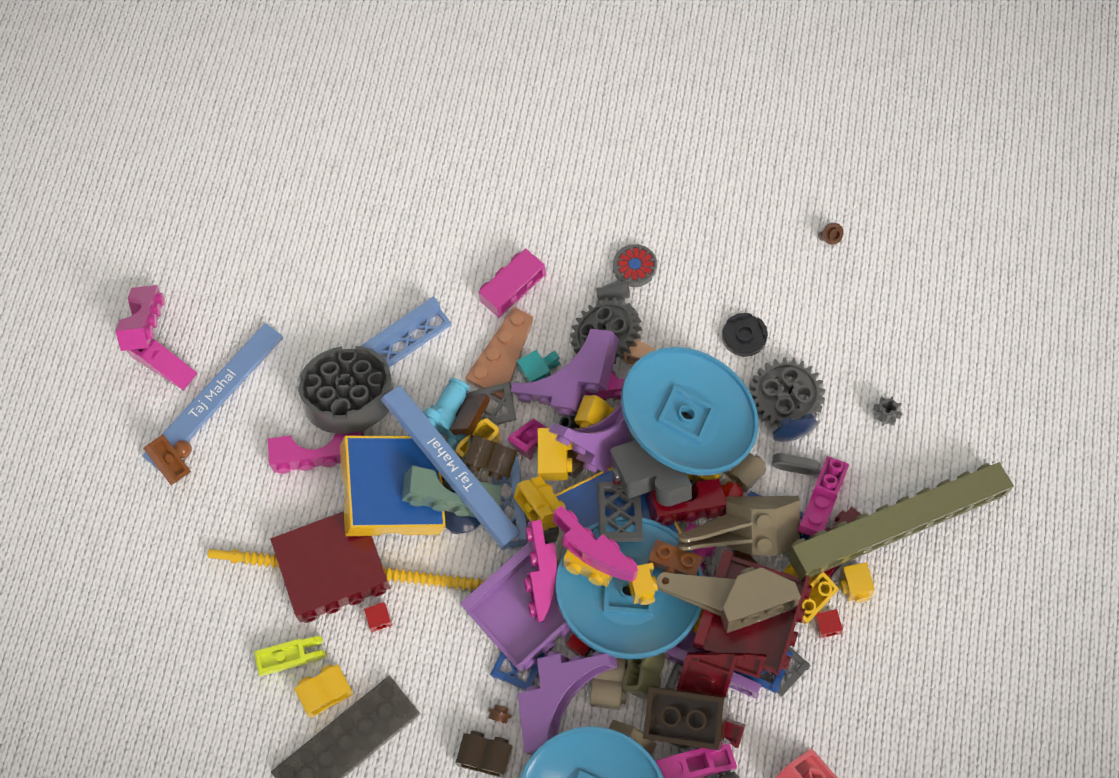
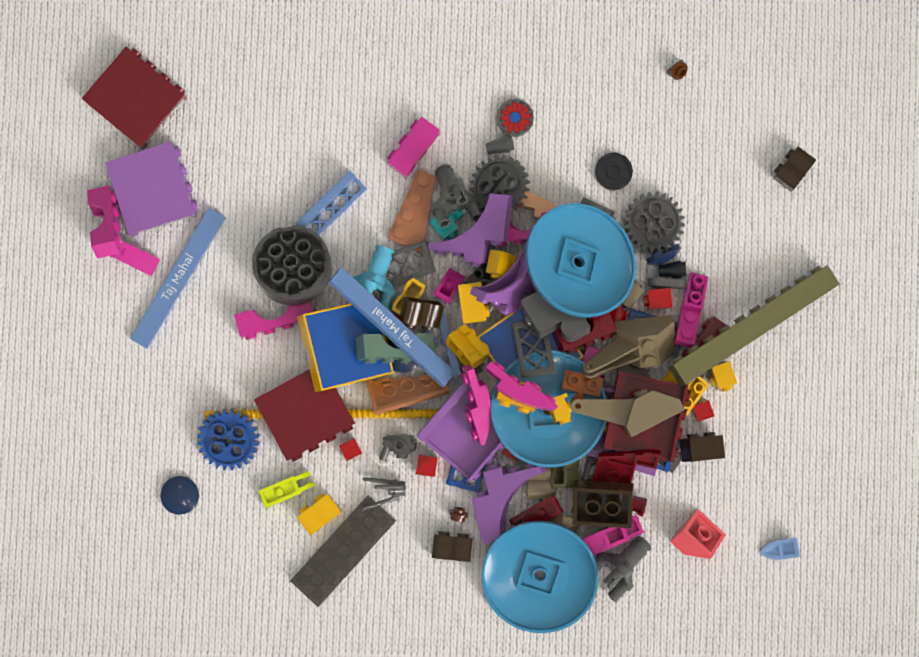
camera: 20 degrees left, 20 degrees up
(158, 647) = (179, 495): none -> dark blue dish
(169, 458) = (153, 339): dark orange plate -> none
(204, 294) = (151, 188): none -> medium lavender panel
(206, 199) = (134, 96): none -> dark red panel
(225, 605) = (229, 422): none -> blue gear
(424, 670) = (394, 488): none -> dark grey plant
(439, 617) = (400, 444): none -> dark grey piece
(452, 554) = (398, 393): none -> nougat wing
(468, 646) = (426, 465): none -> red brick
(470, 414) = (398, 275): reddish brown tile -> none
(548, 335) = (453, 197): none -> dark grey wheel
(614, 716) = (541, 511): none -> dark red plate
(783, 481) = (657, 299): none -> red brick
(808, 449) = (673, 269): none -> black cone
(823, 666) = (702, 448): none -> dark brown brick
(888, 404) = (731, 231): dark grey gear -> none
(963, 352) = (794, 168): none -> dark brown brick

